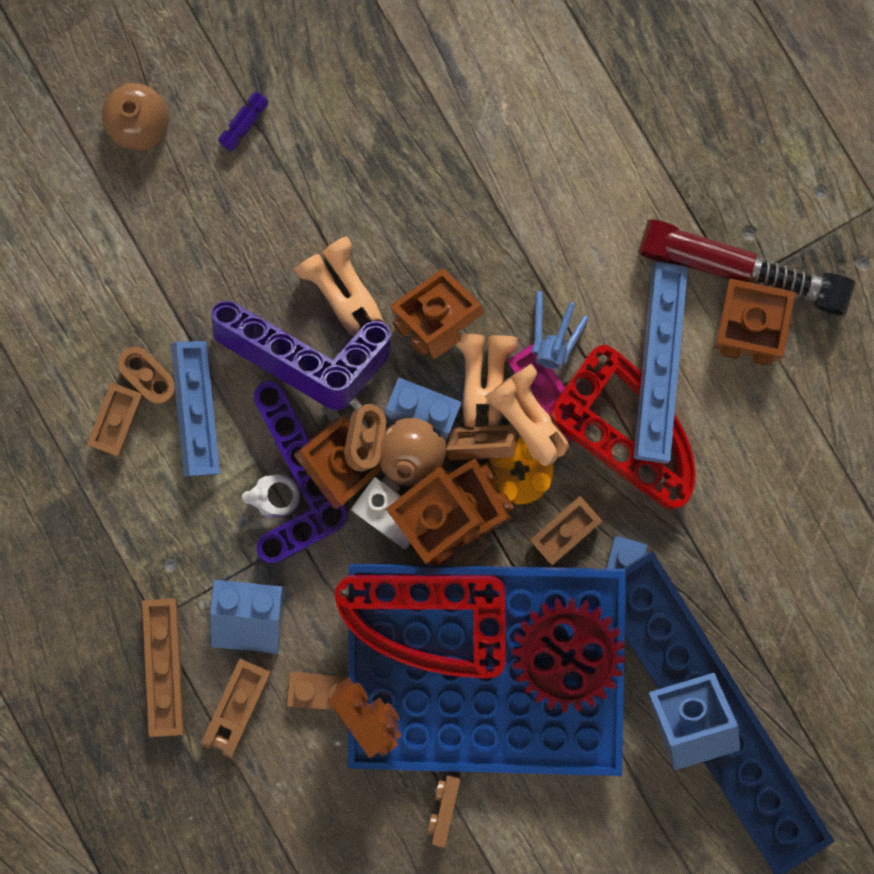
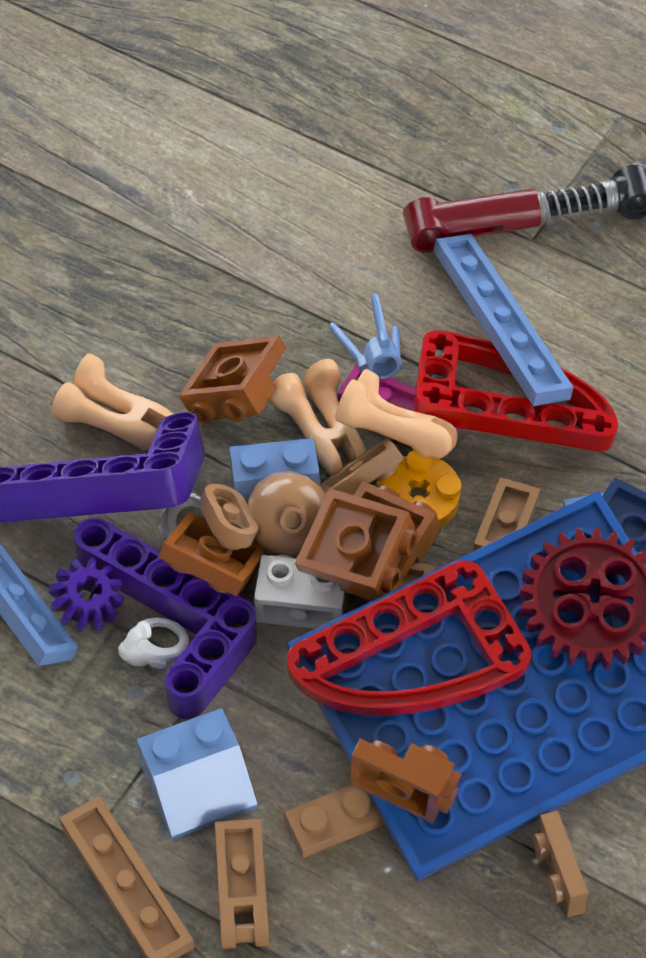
camera: 30 degrees left, 30 degrees down
(239, 427) = (69, 595): none -> dark purple gear
(754, 322) = (571, 247): dark orange plate -> none

